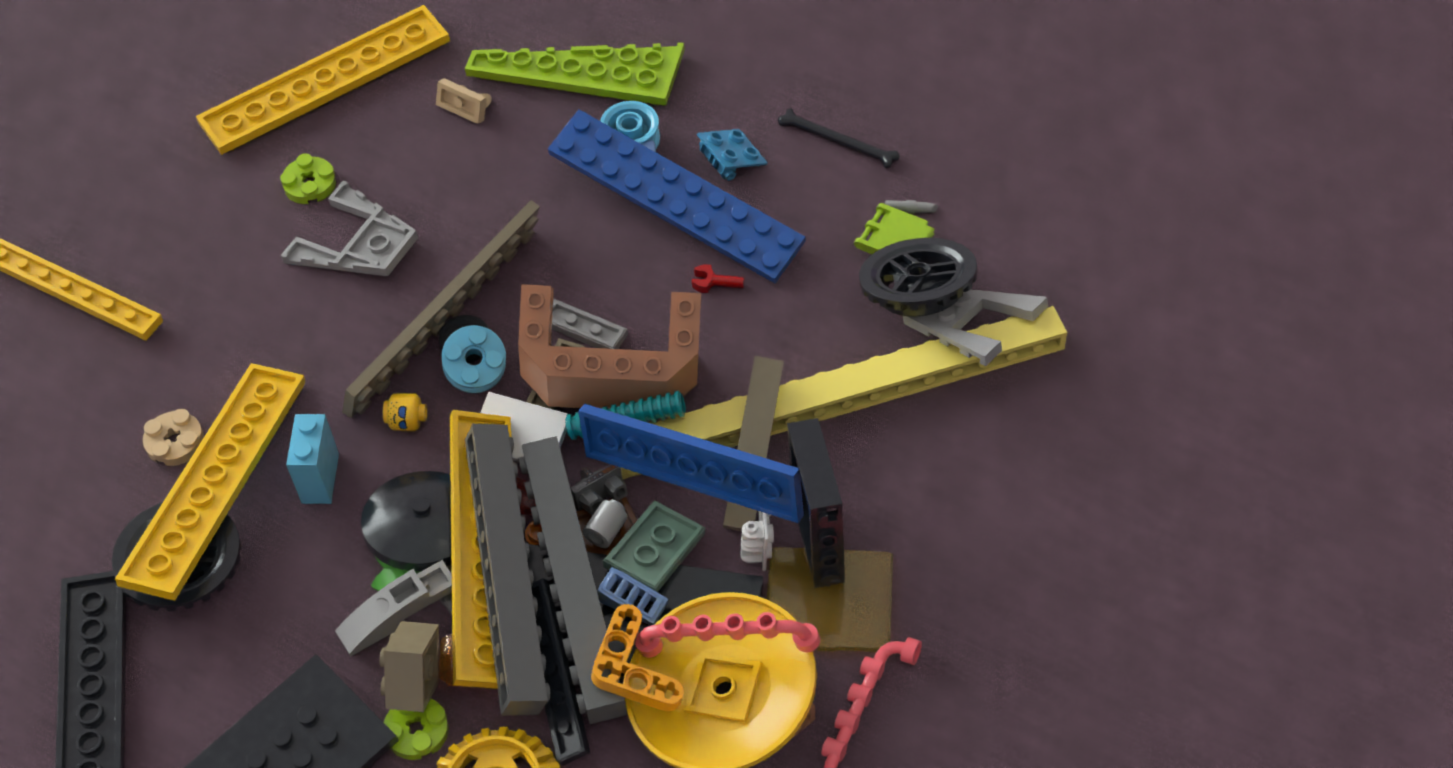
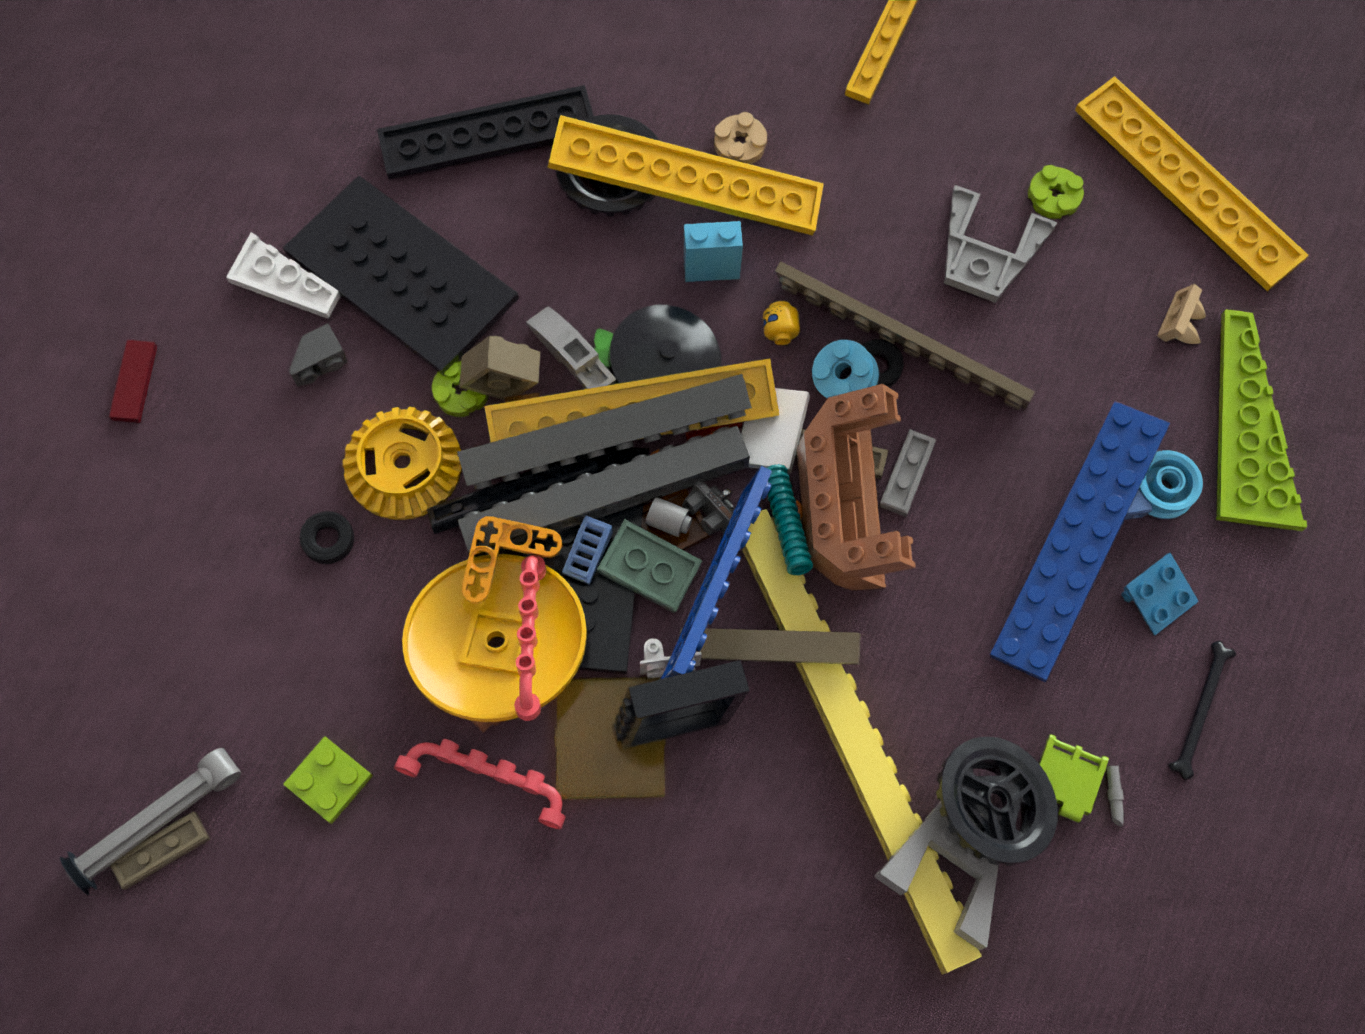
camera: 80 degrees right, 15 degrees up
(713, 279) = (984, 594): red bar -> none

